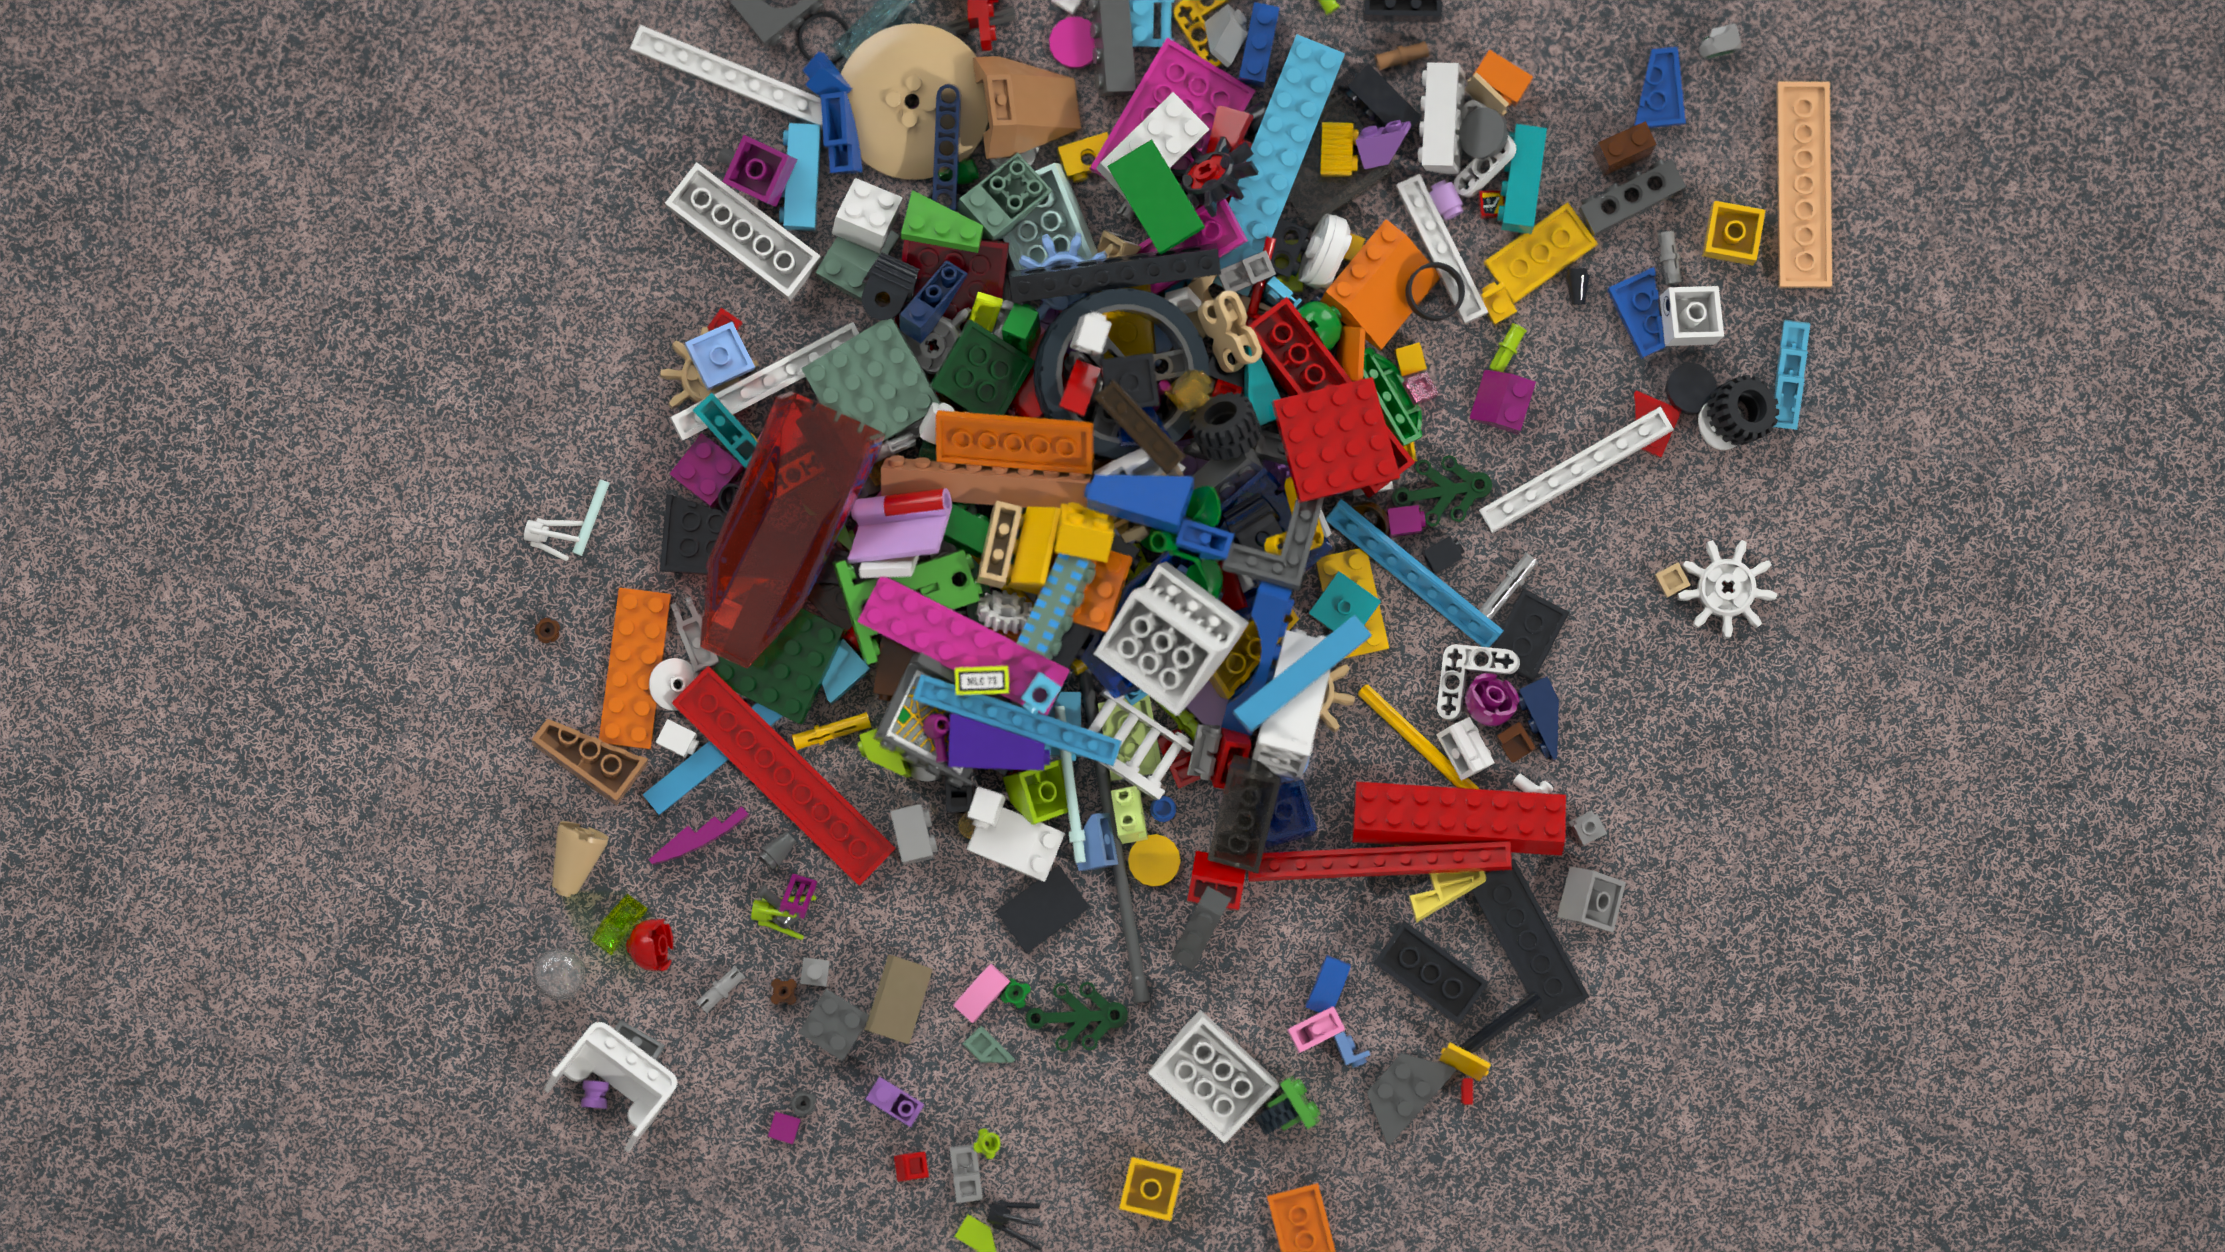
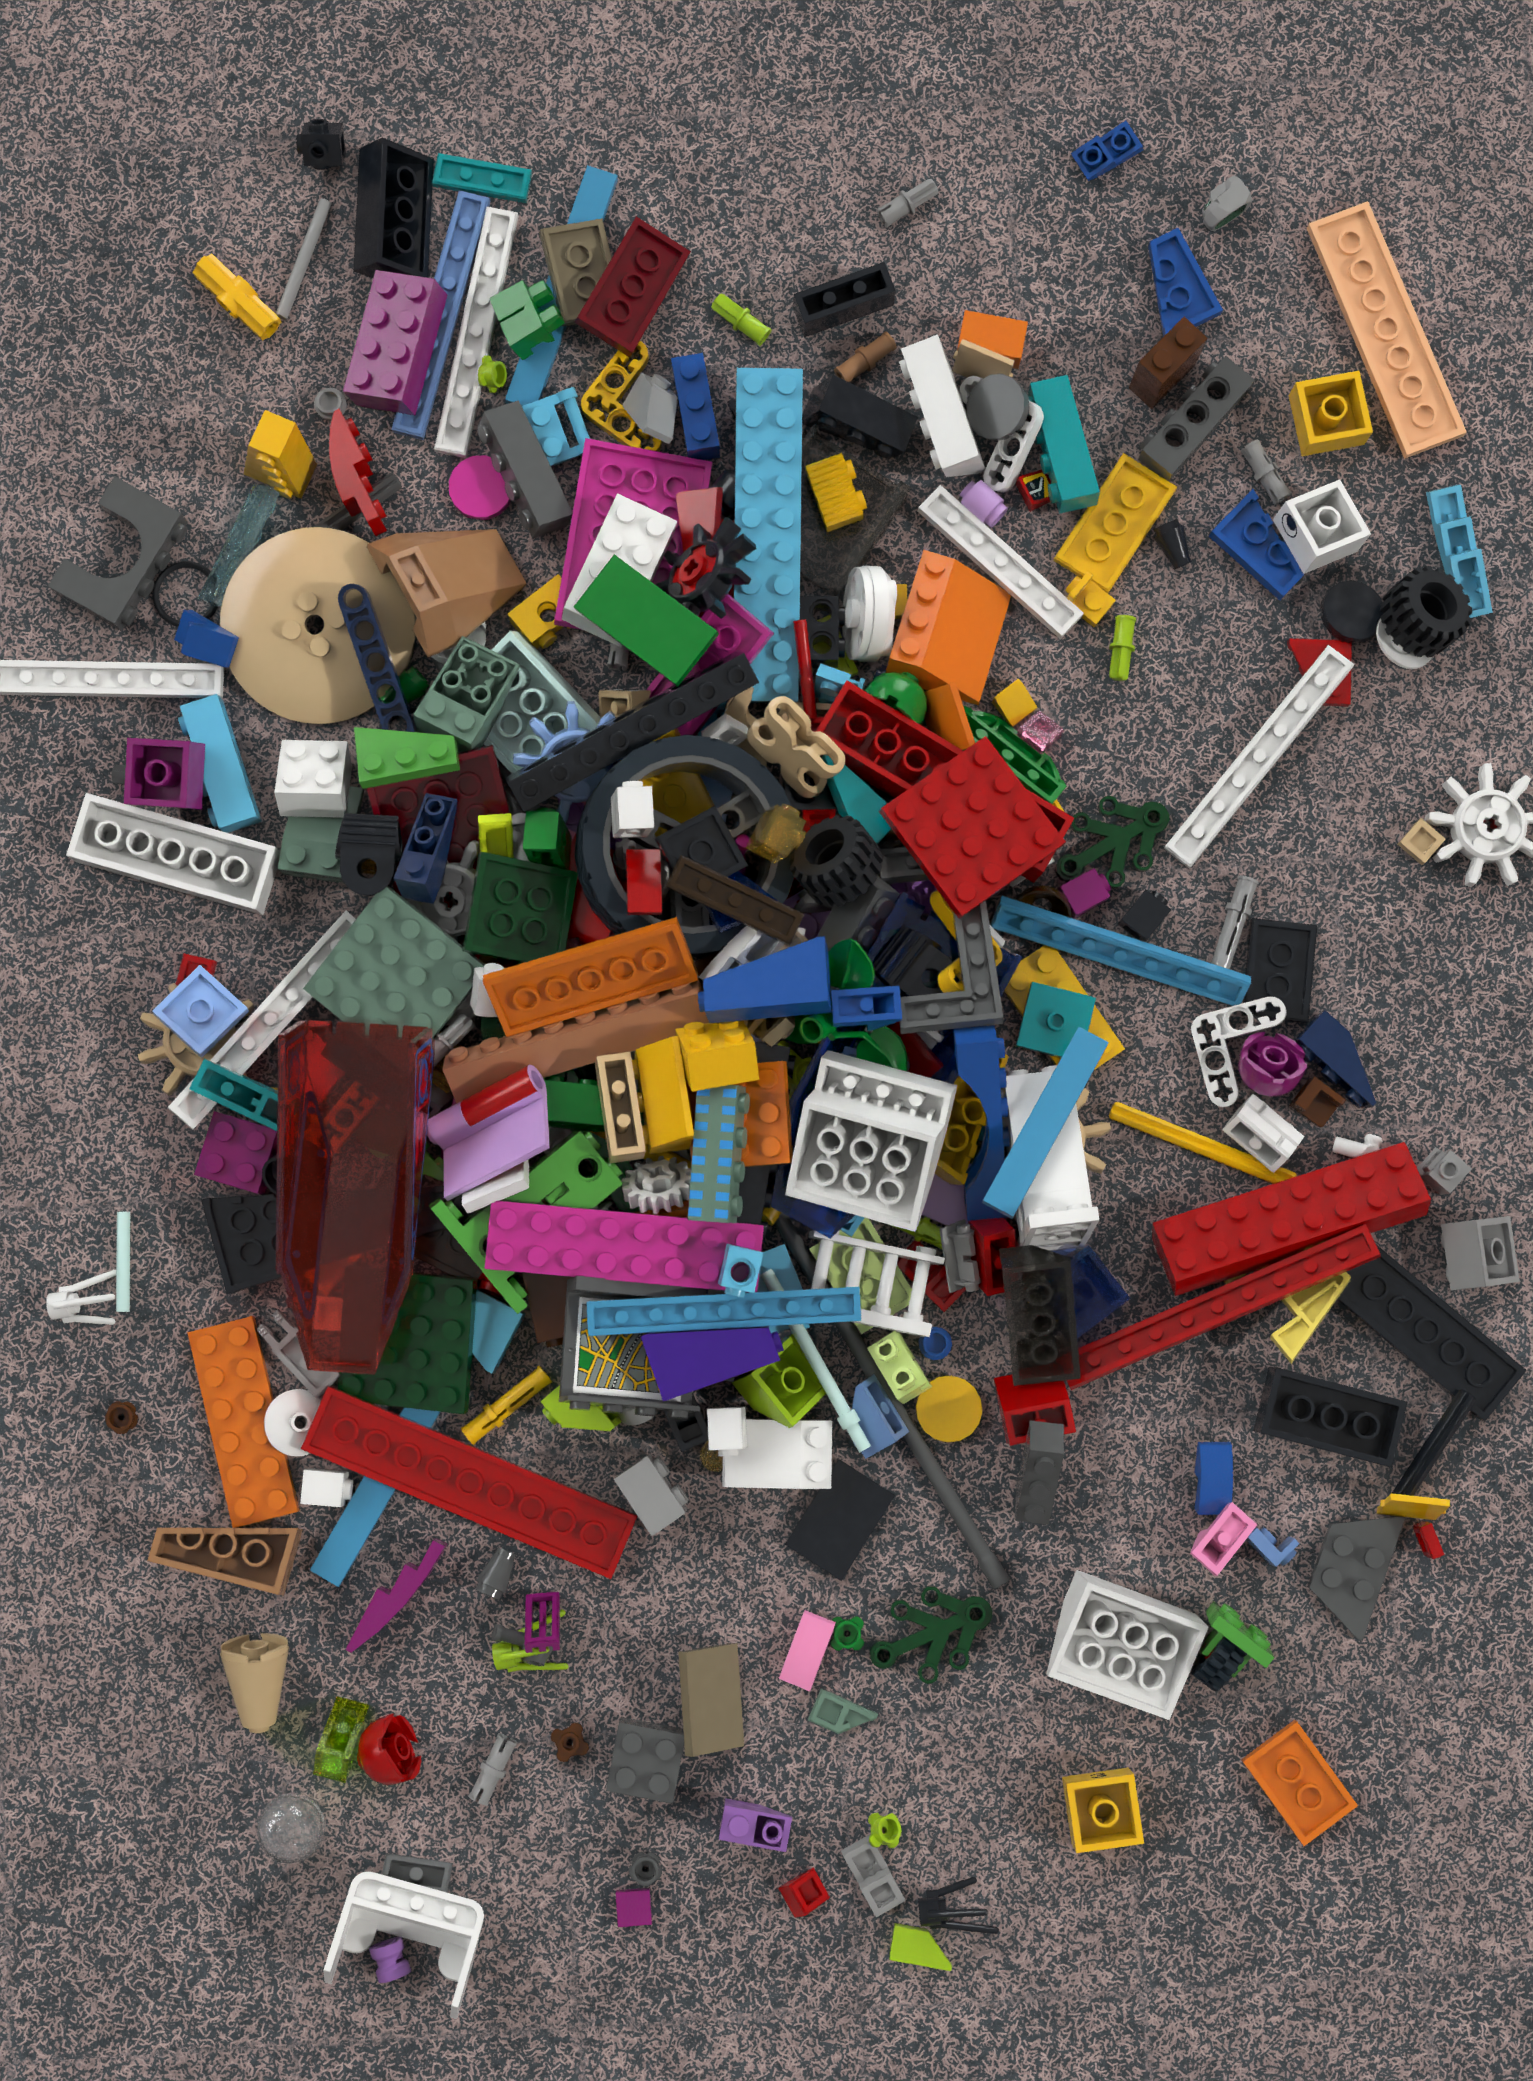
camera: 20 degrees left, 0 degrees up
(815, 972) = (598, 1702): light grey plate -> none
(840, 134) = (246, 695): blue slope -> none
(933, 732) = (627, 1365): magenta bar -> none
(981, 680) = (663, 1280): tile -> none
(1246, 272) = (787, 671): light grey slope -> none
(1379, 145) = (883, 466): medium lavender slope -> none
(1453, 273) = (1035, 588): black tyre -> none
(1502, 400) = (1142, 709): magenta slope -> none

